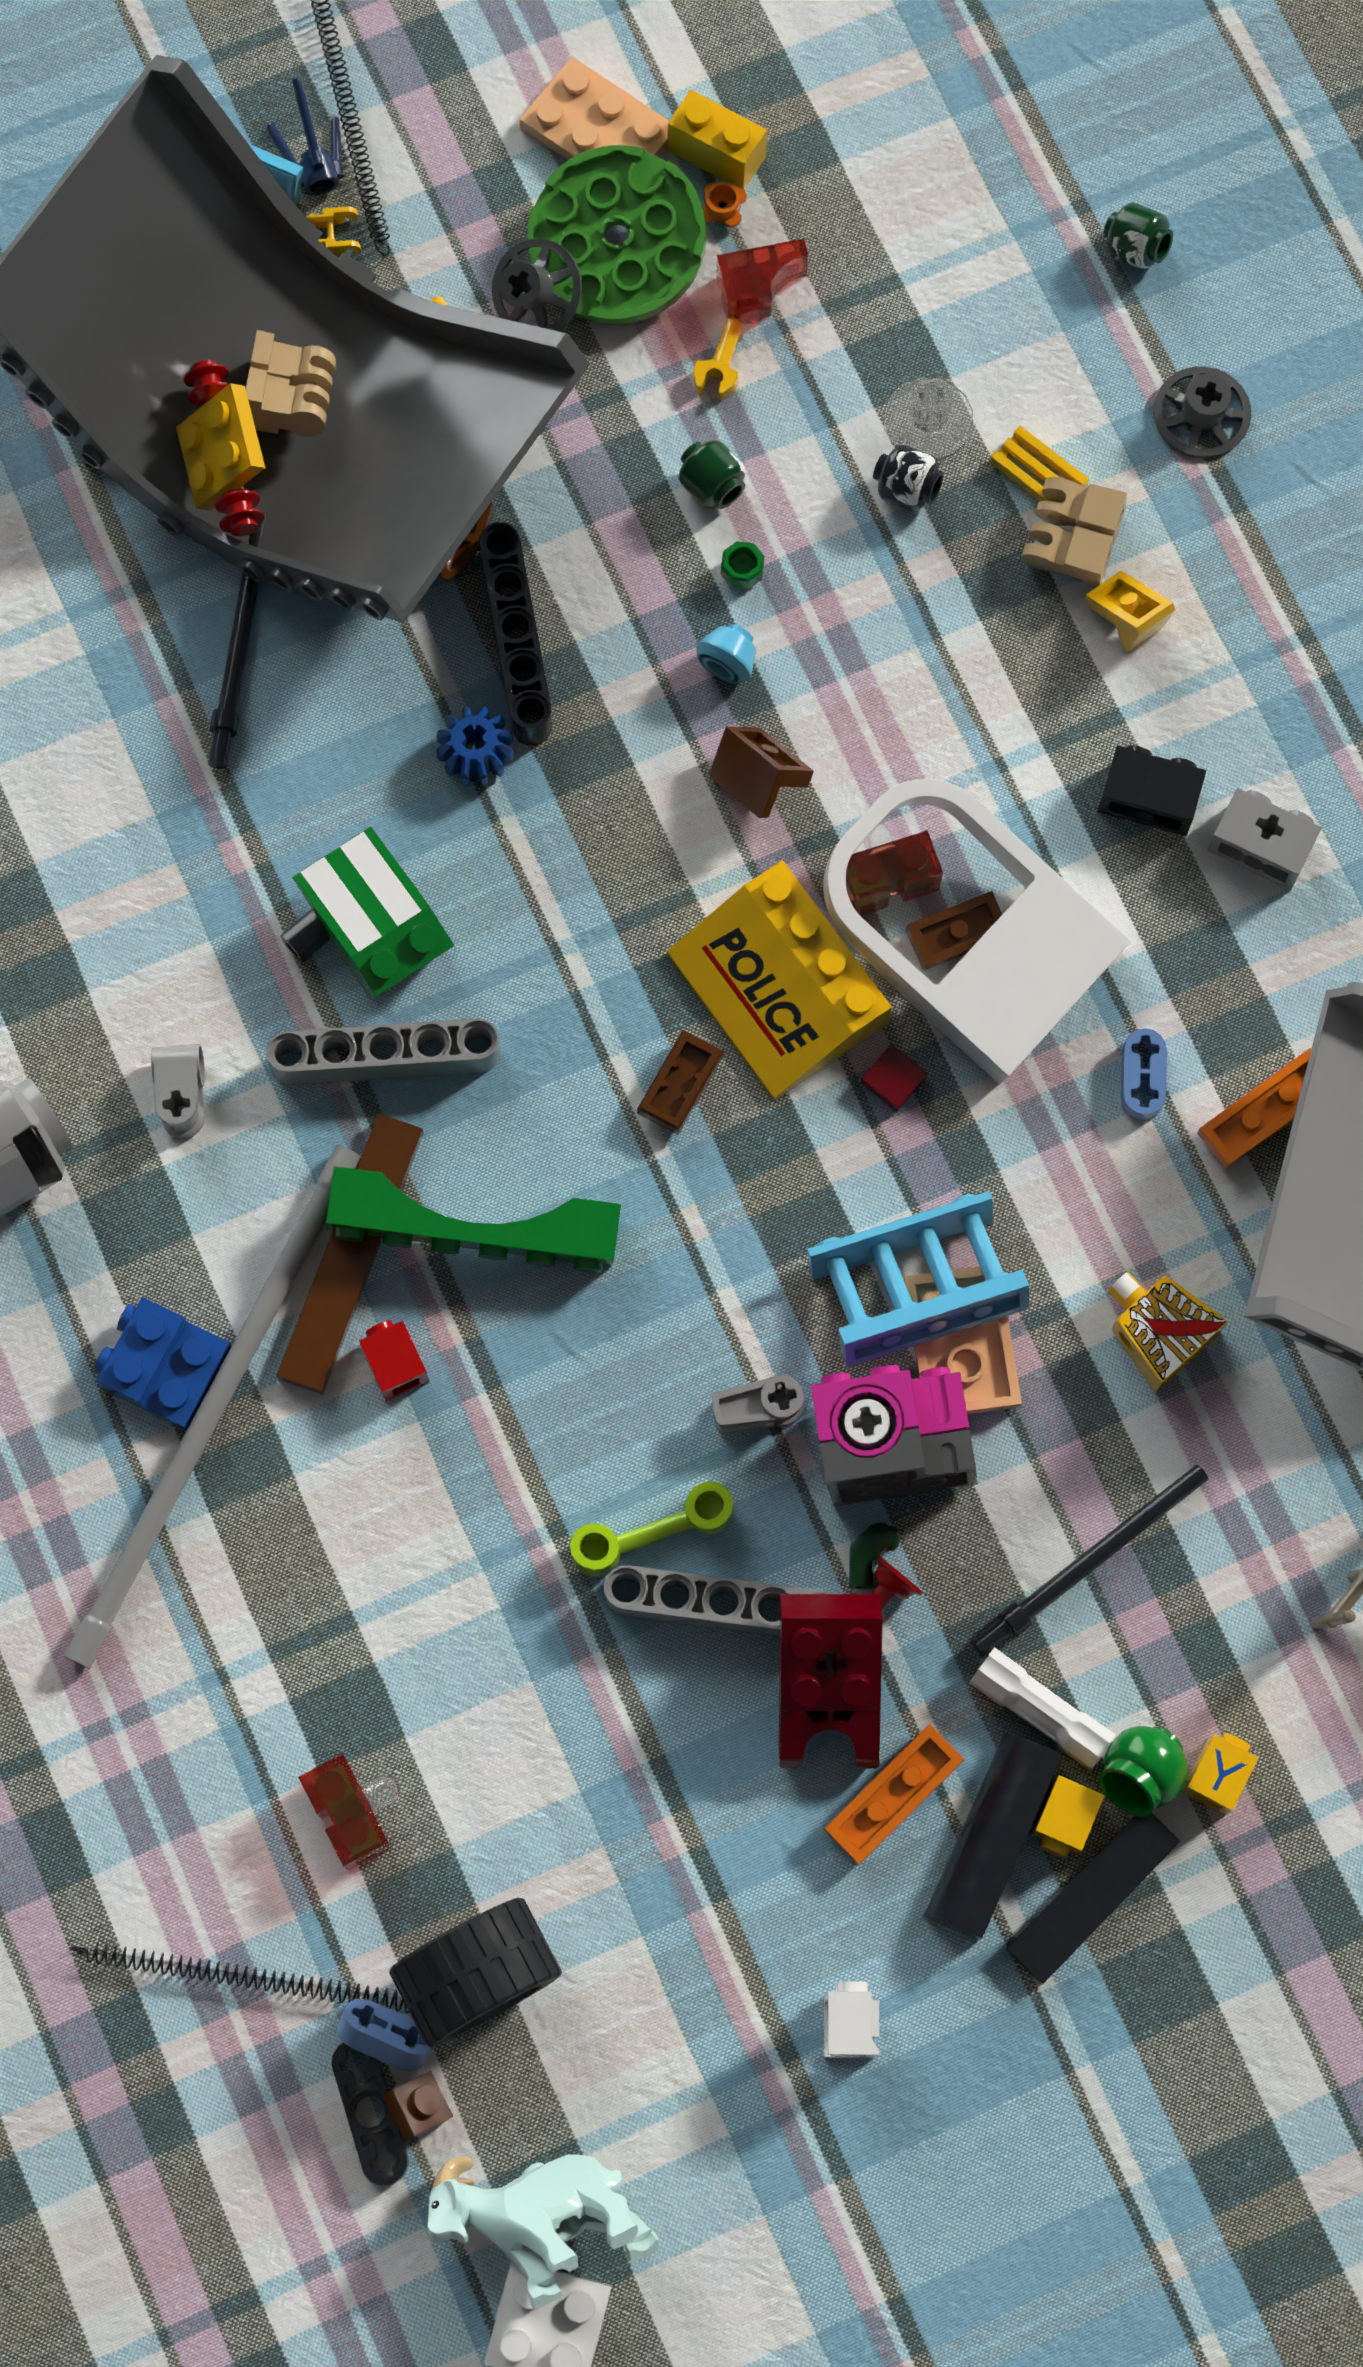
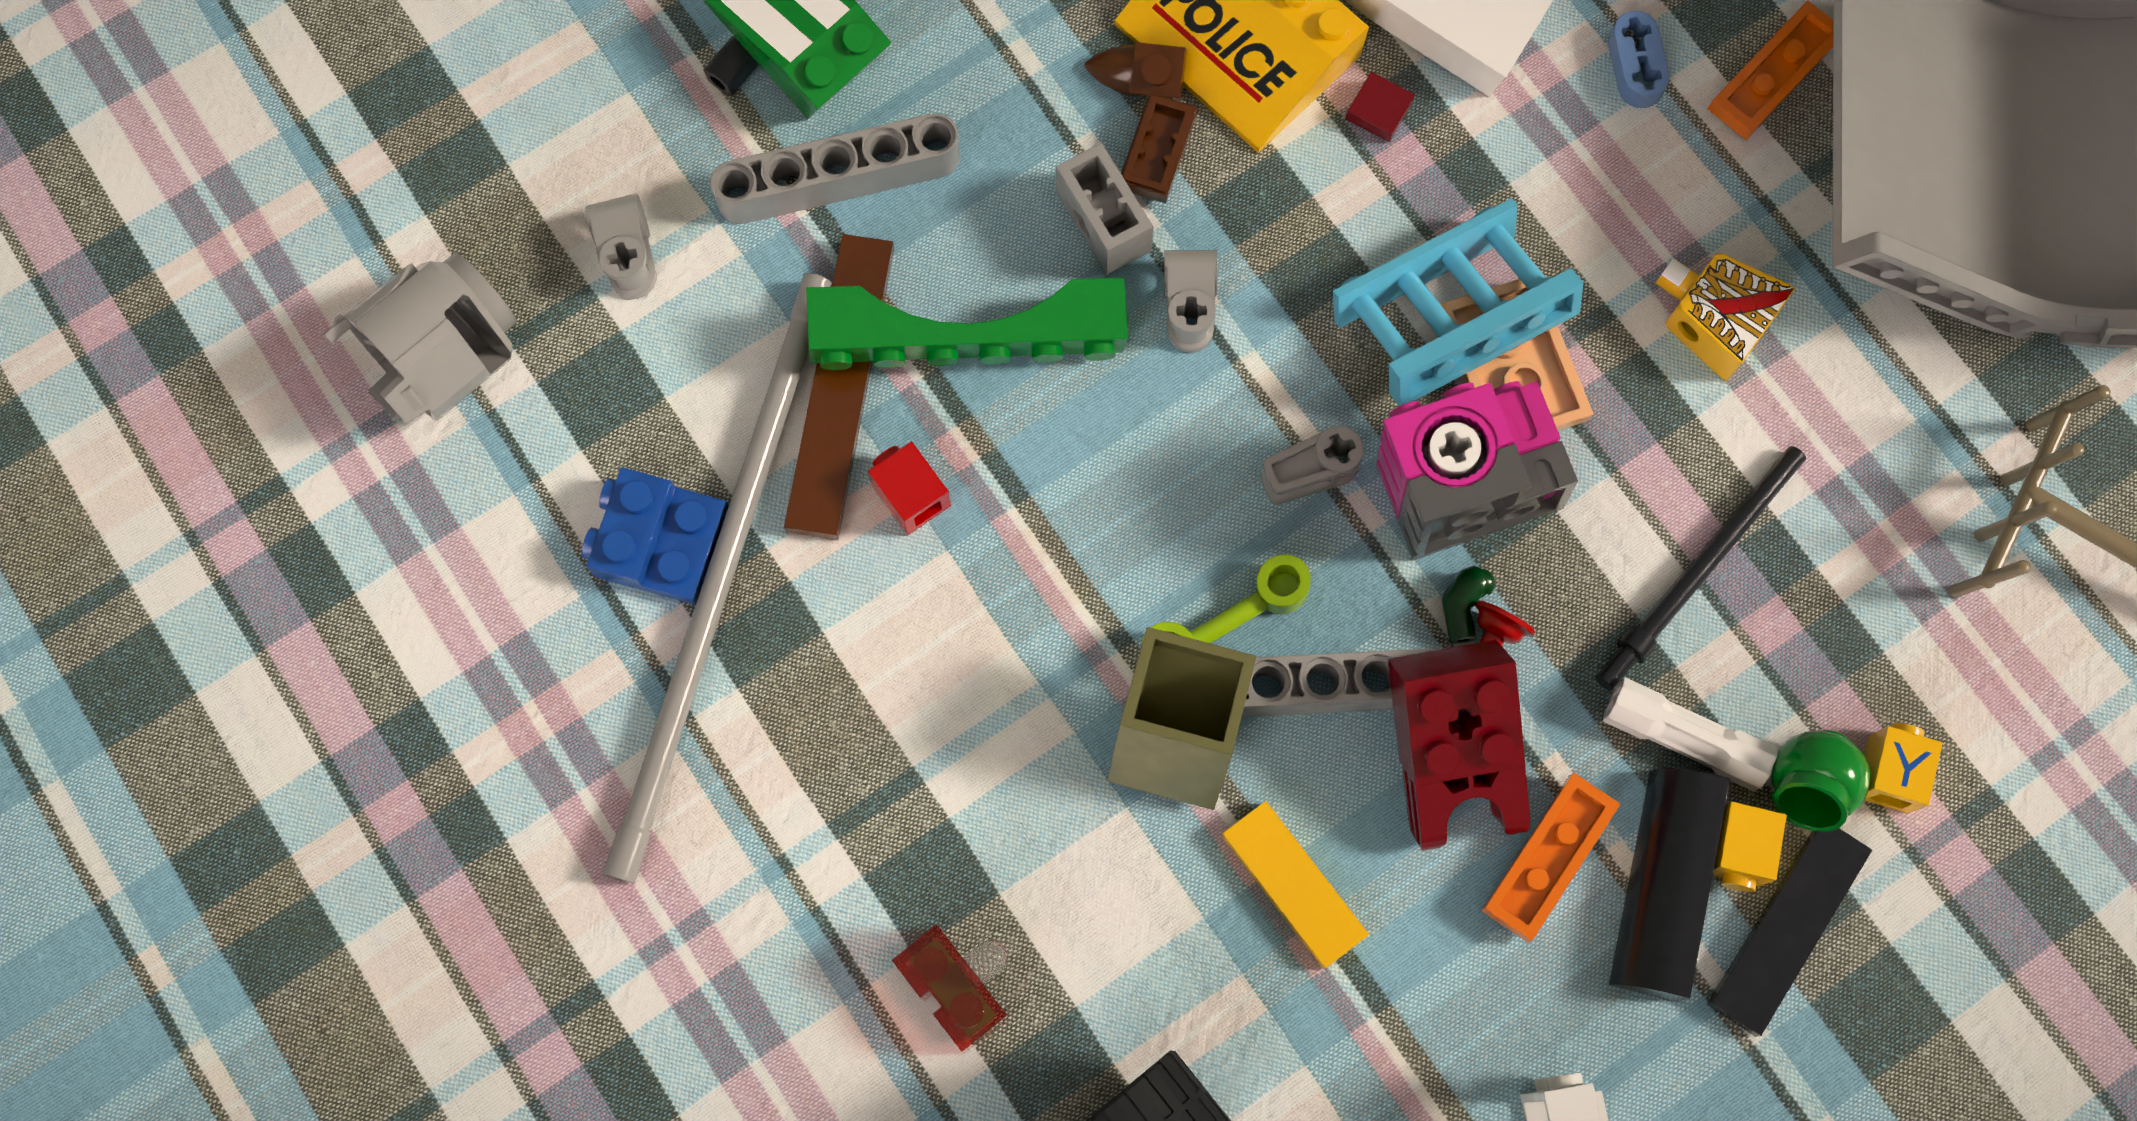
camera: 10 degrees left, 0 degrees up
(588, 1613) = (1181, 718): none -> olive slope
(617, 1134) = (1104, 208): none -> light grey brick
(664, 1777) = (1294, 885): none -> yellow tile
(681, 1005) = (1141, 69): none -> reddish brown plate
(681, 1222) = (1190, 292): none -> light grey piece

